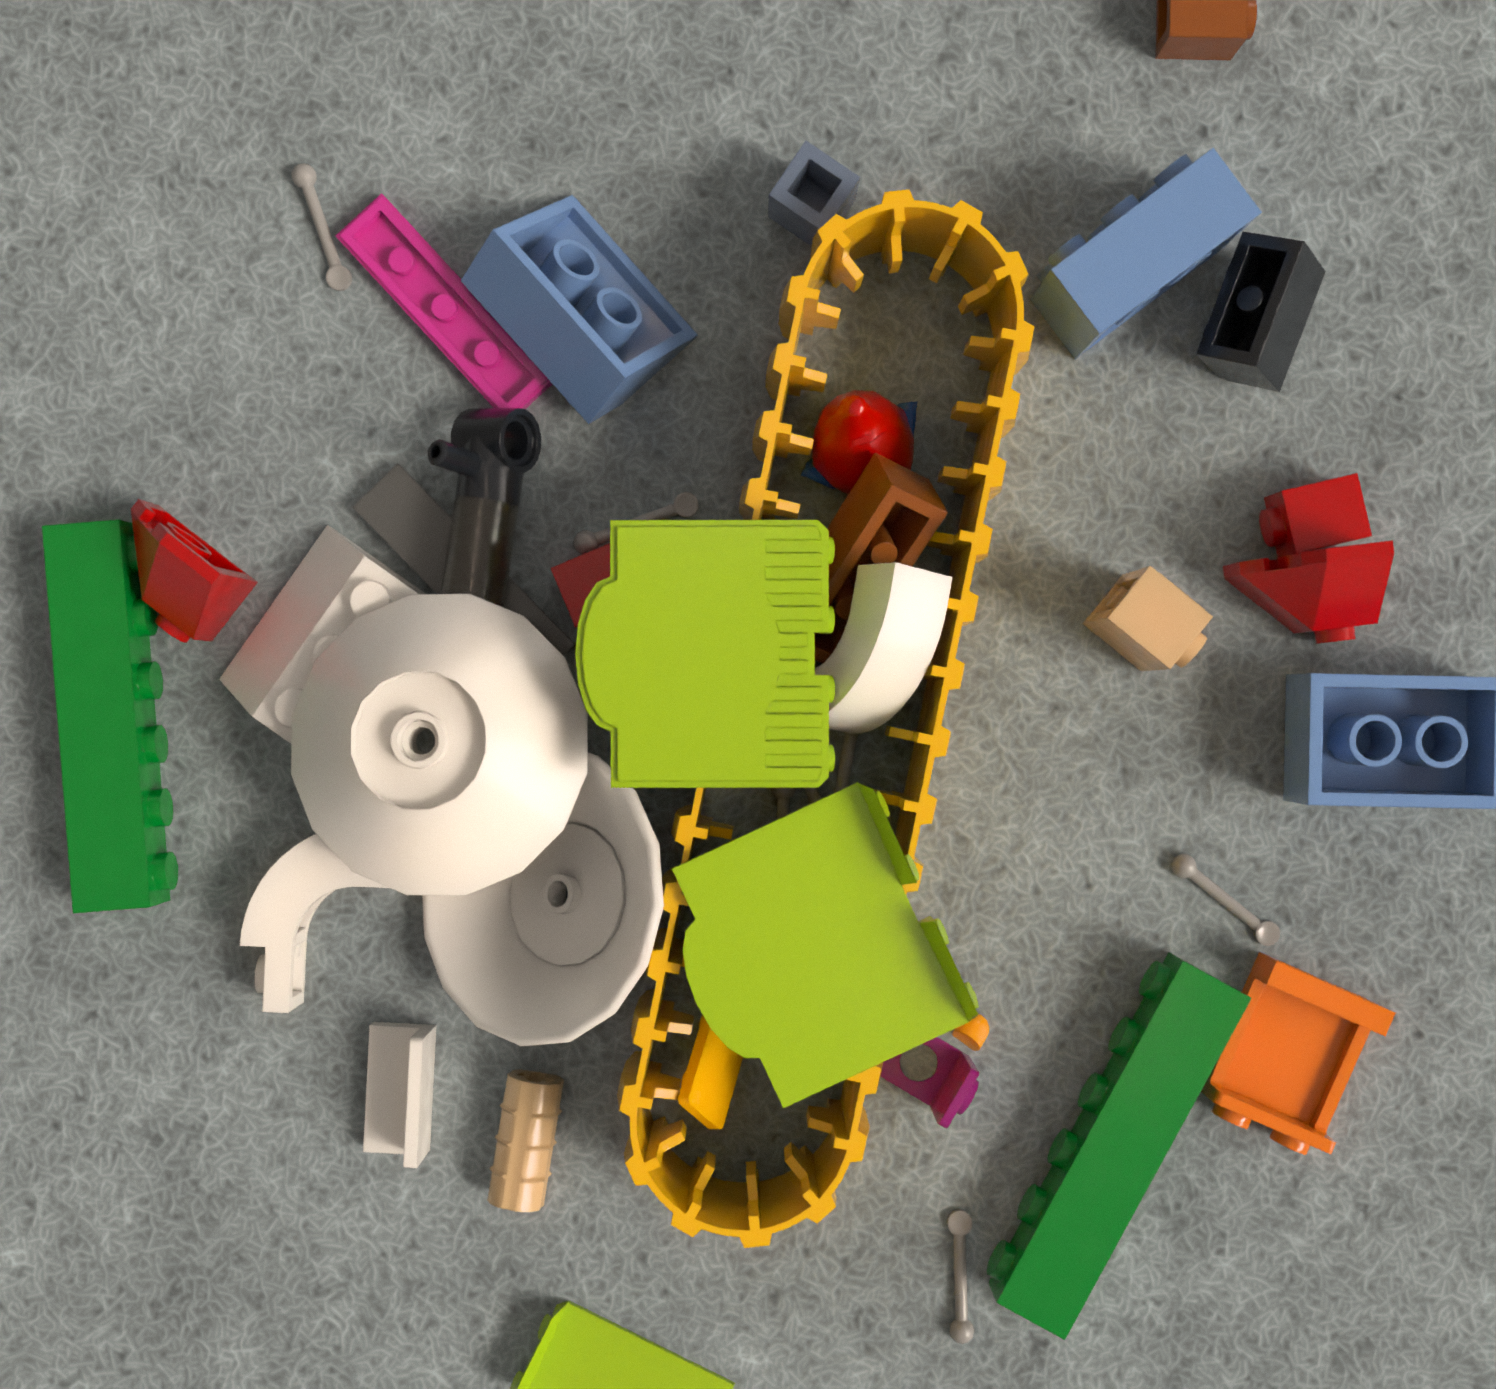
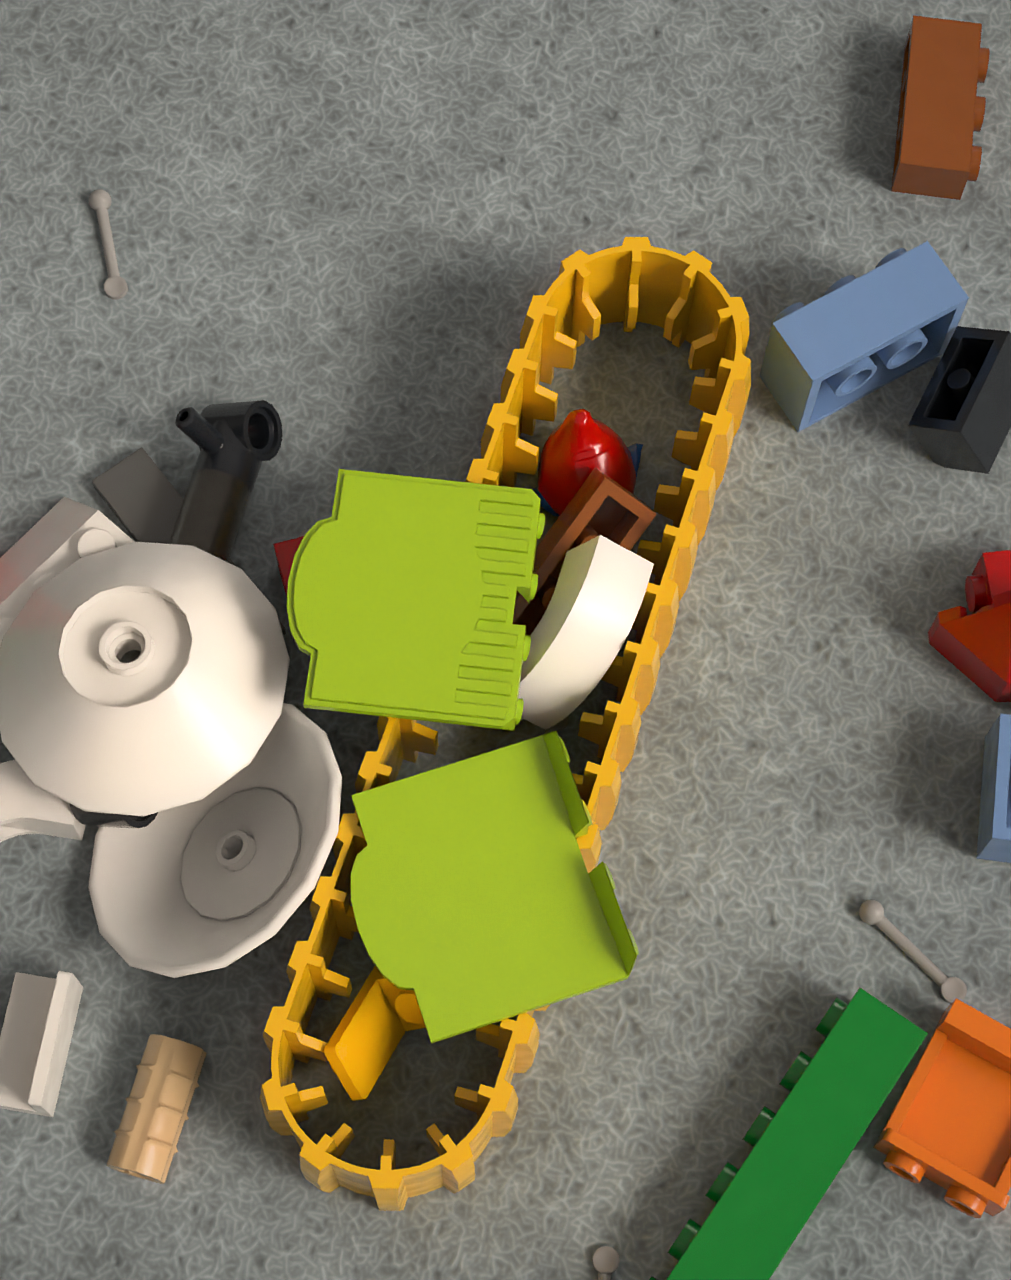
camera: 10 degrees right, 20 degrees down
(442, 306) = (208, 319): dark pink tile -> none
(576, 306) = (332, 331): medium blue slope -> none
(811, 192) = (553, 242): sand blue brick -> none
(948, 1089) = (614, 1094): magenta bracket -> none
(973, 1033) = (639, 1056): light orange piece -> none
(1150, 621) = (845, 654): tan brick -> none

